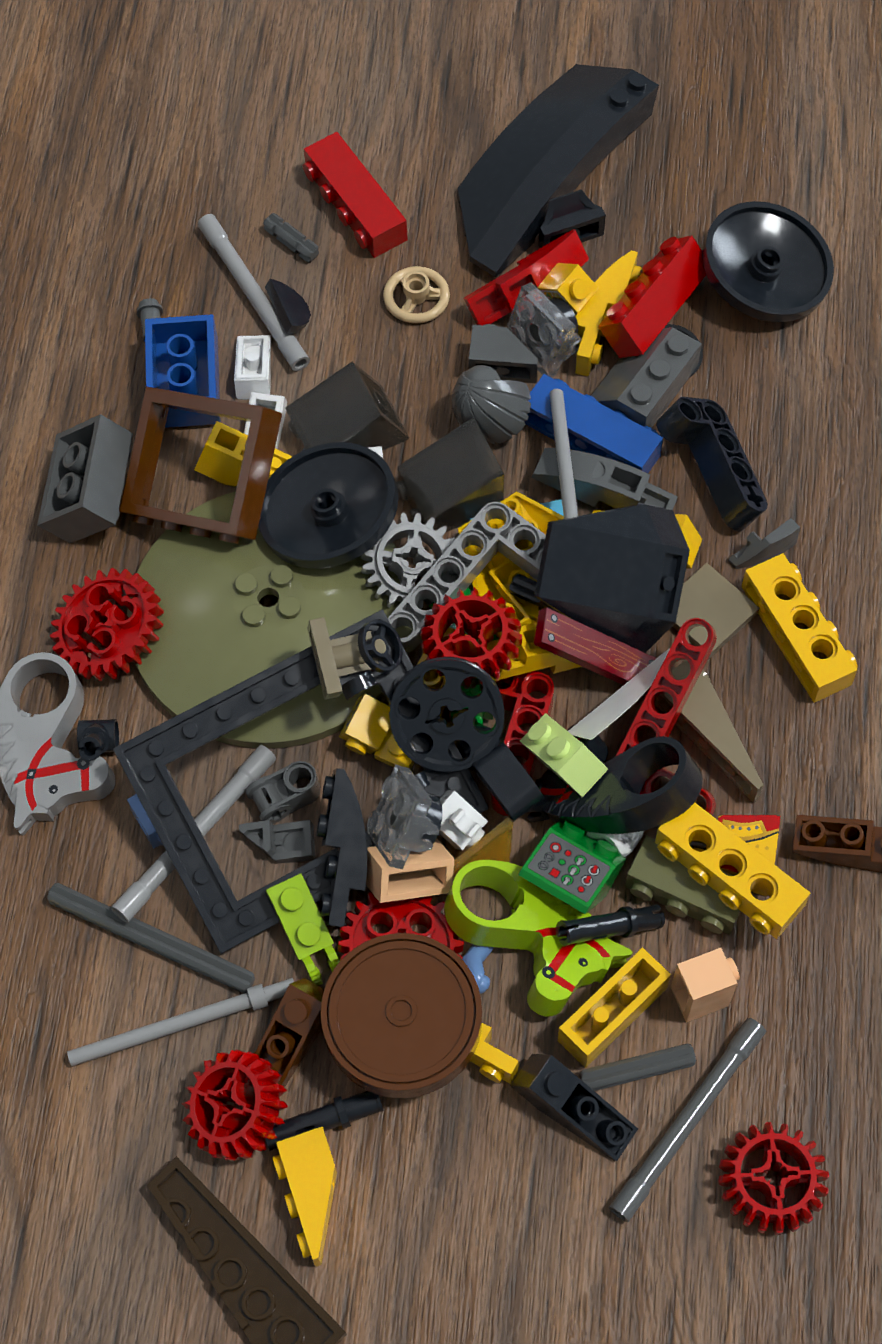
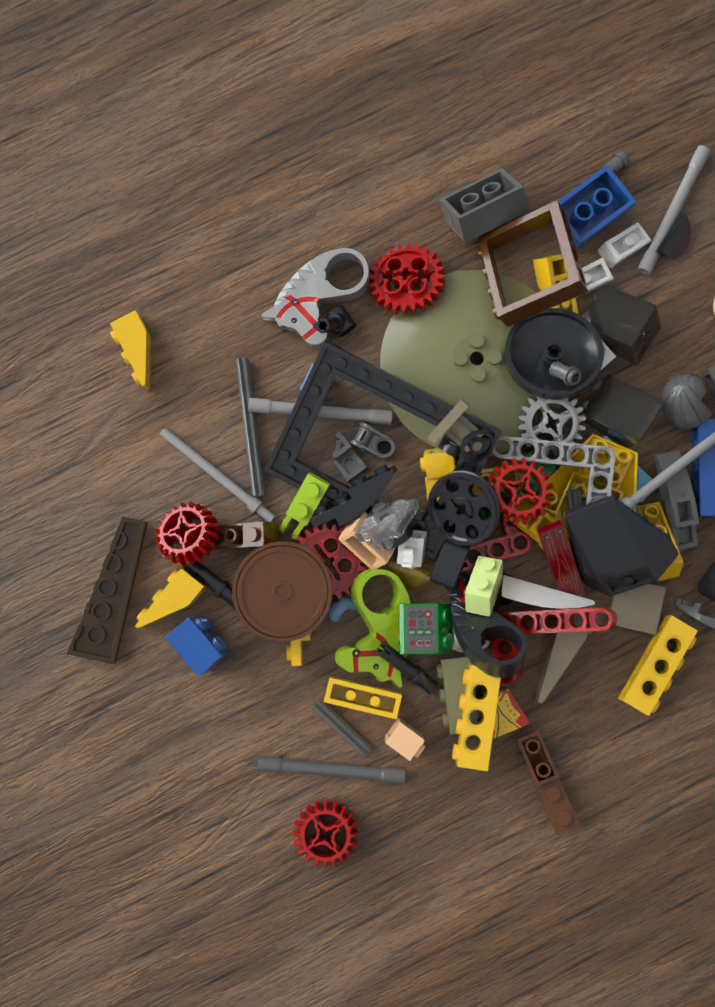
camera: 60 degrees right, 20 degrees up
(368, 495) = (569, 375): none -> dark grey pin
(399, 1174) = (199, 644): none -> blue brick
(573, 1105) = (299, 706): black slope -> none

